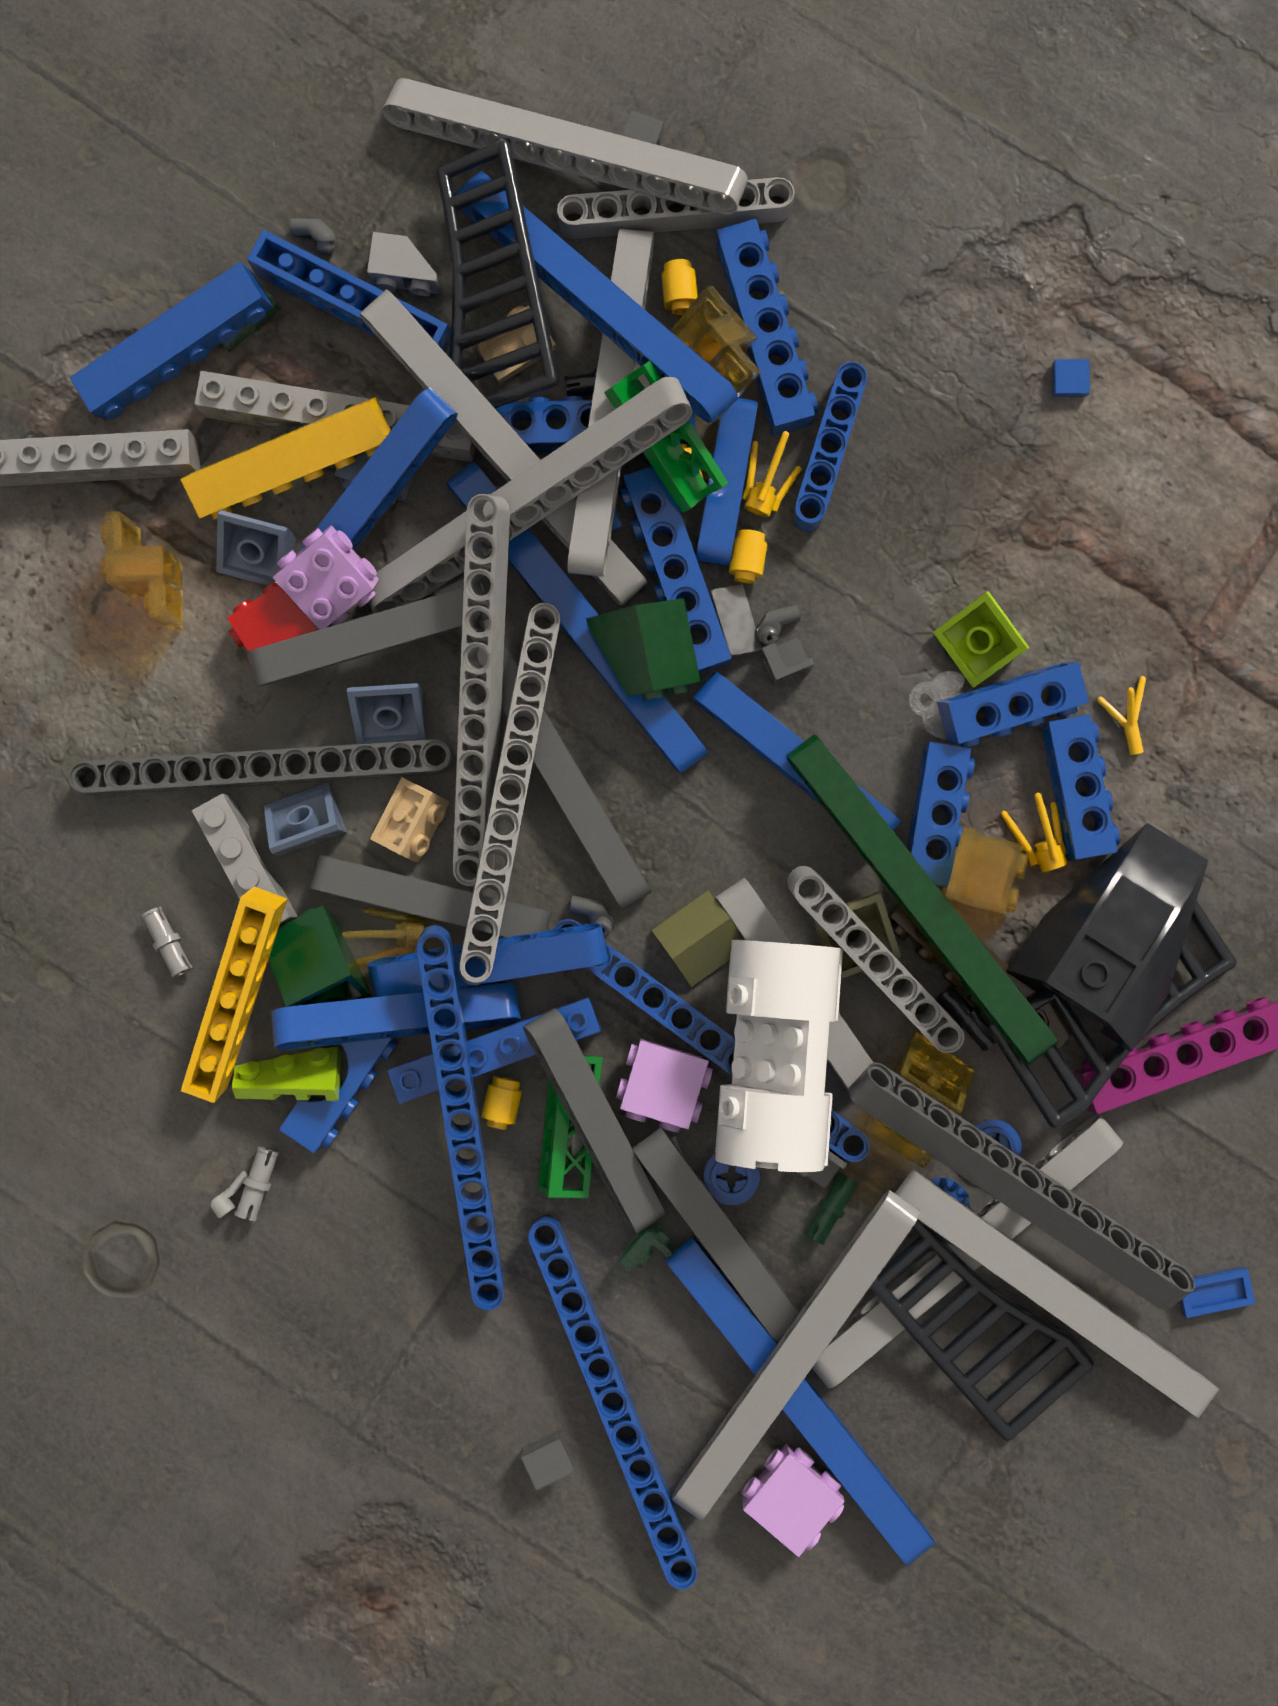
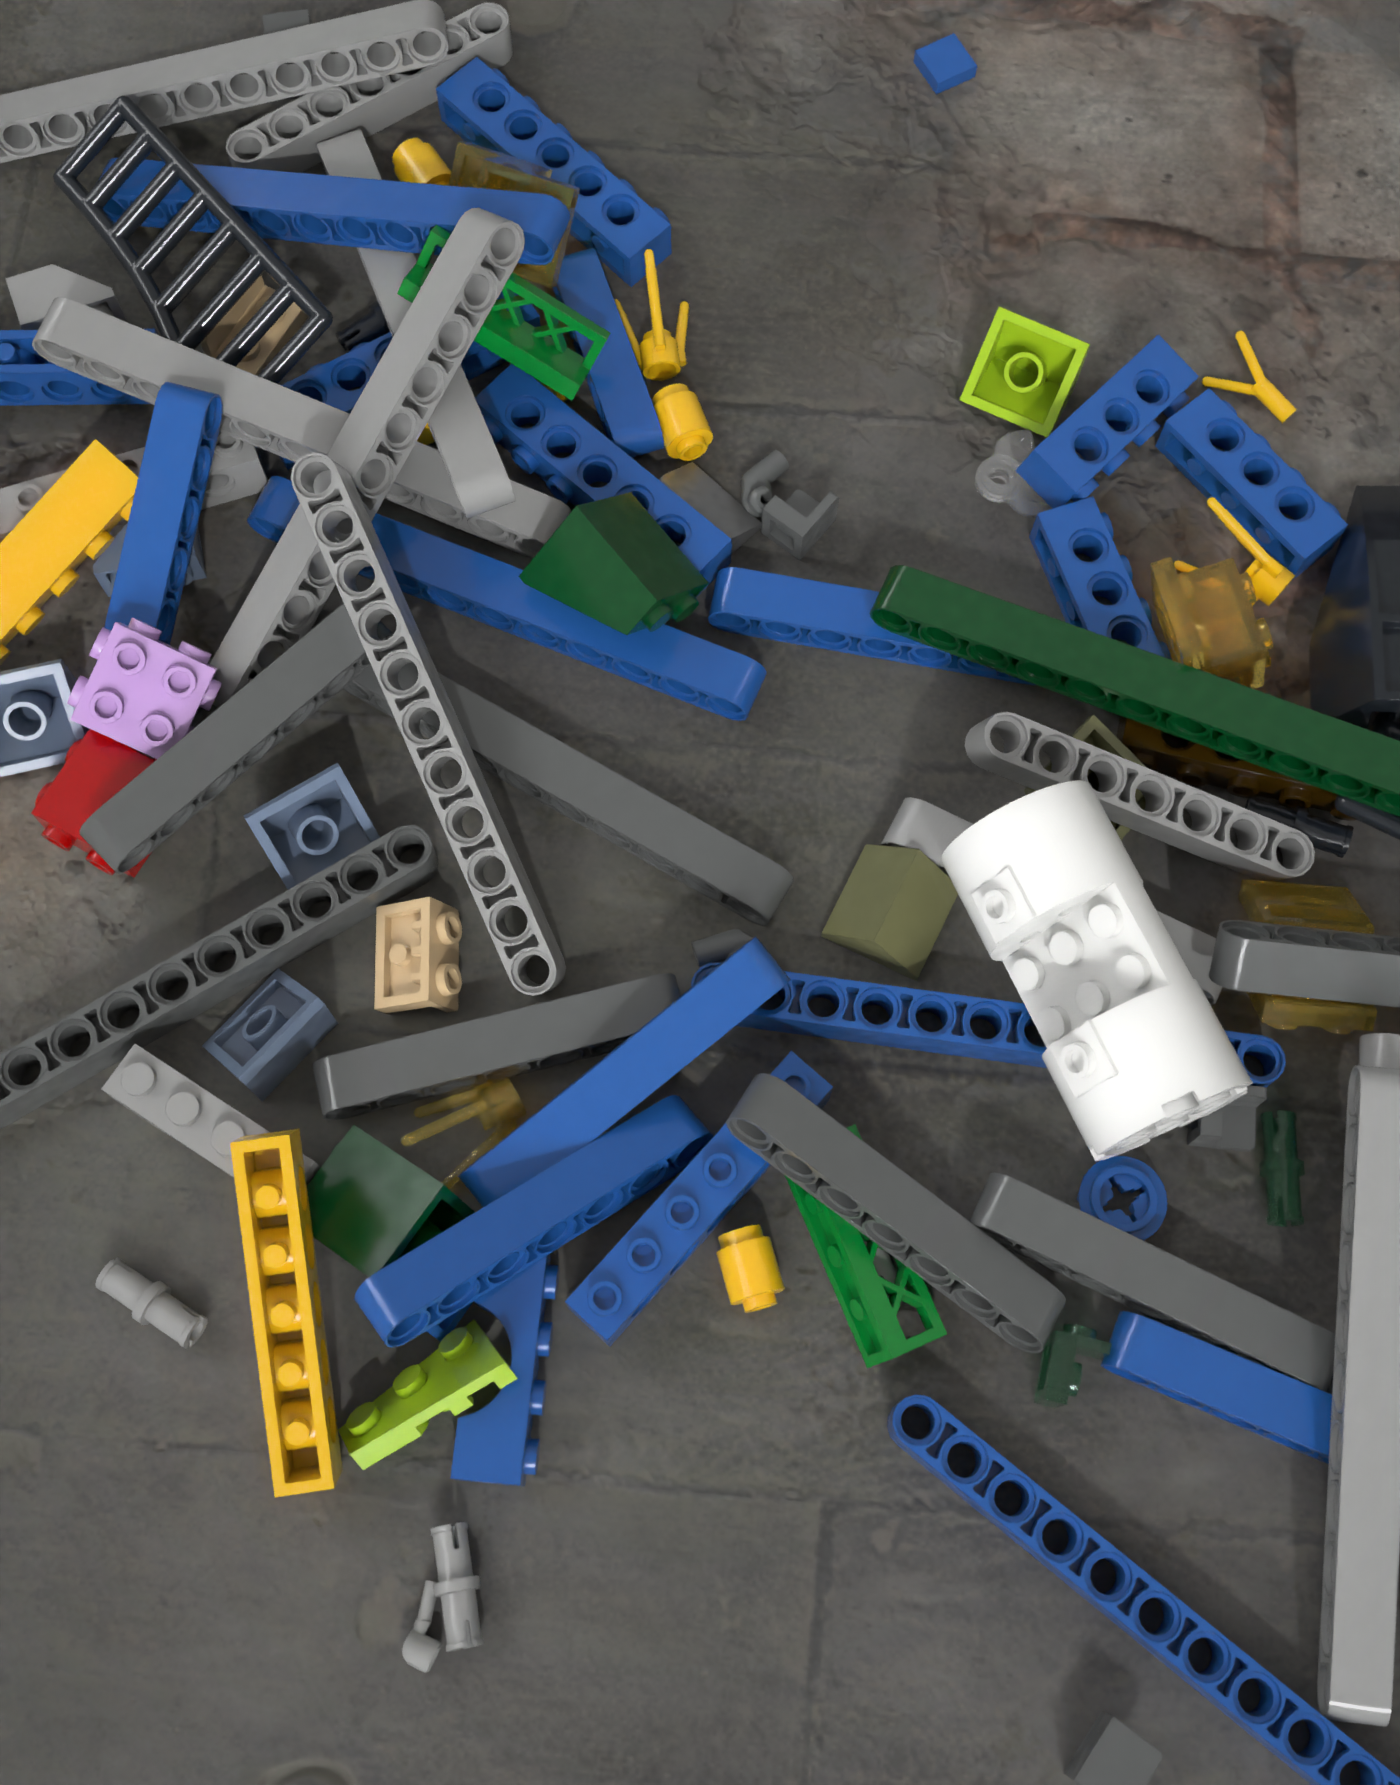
camera: 30 degrees left, 15 degrees down
(461, 1136) = (769, 1372): blue beam -> none
(509, 774) = (540, 853): light grey beam -> none
(663, 1085) = (959, 1119): lavender brick -> none
(837, 432) = (702, 236): blue beam -> none

